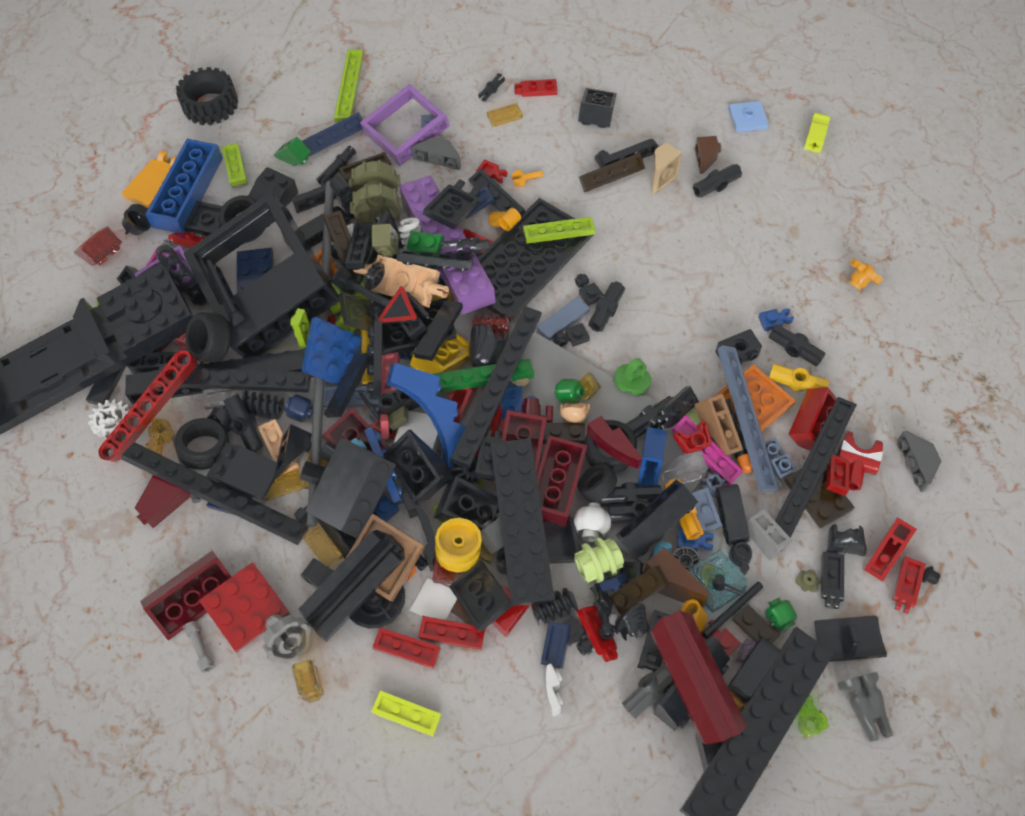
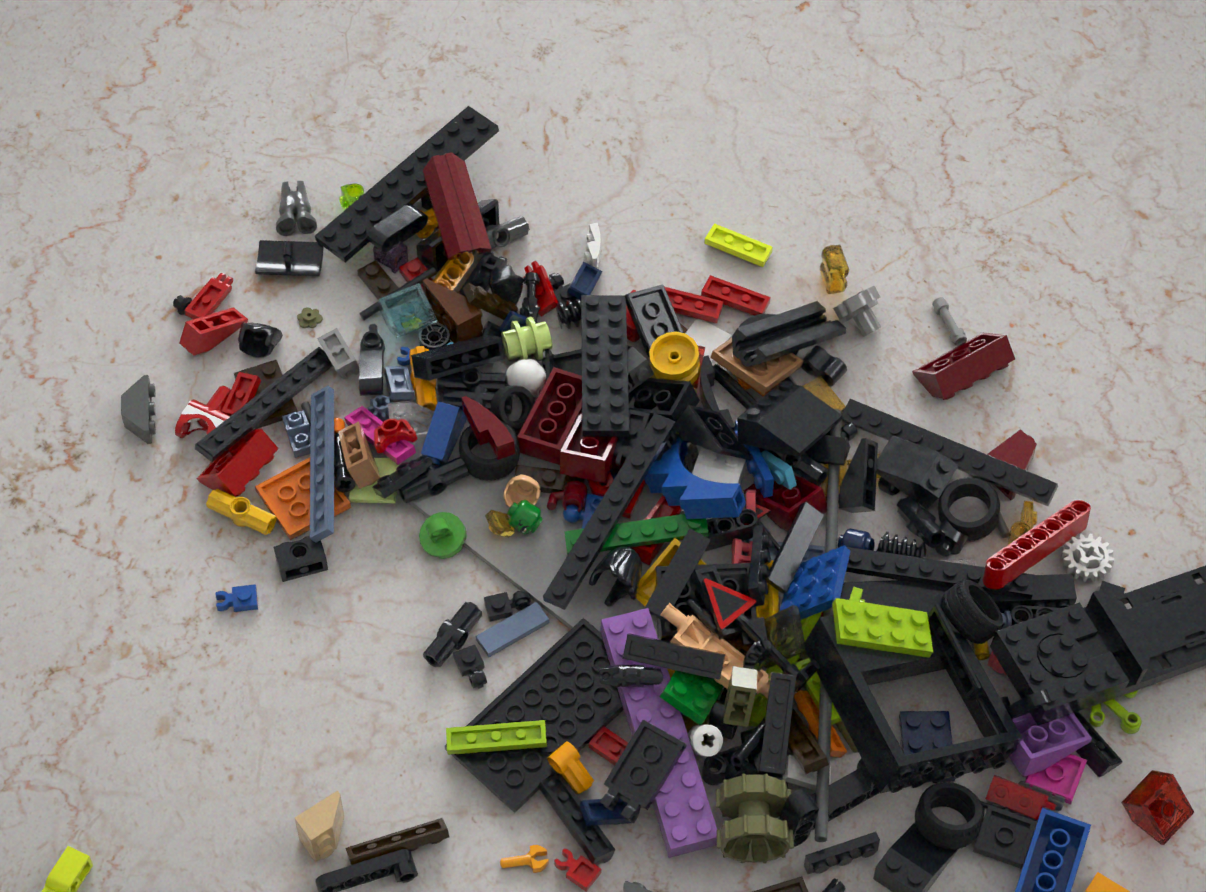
camera: 175 degrees left, 5 degrees down
(135, 220) = (1105, 839): black piece -> none
(243, 606) = (904, 347): red plate -> none
(272, 437) = (885, 513): light nougat plate -> none
(277, 292) = (882, 627): none -> lime plate
(497, 324) = (606, 609): clear red piece -> none
(706, 151) = (245, 861): reddish brown slope -> none
(717, 180) = (246, 810): black piece -> none
(720, 585) = (409, 292): black hand -> none
(780, 614) = (351, 283): green head -> none
(797, 345) = (226, 556): black piece -> none
(832, 578) = (286, 309): black hinge -> none
(863, 274) = (101, 631): light orange plant -> none

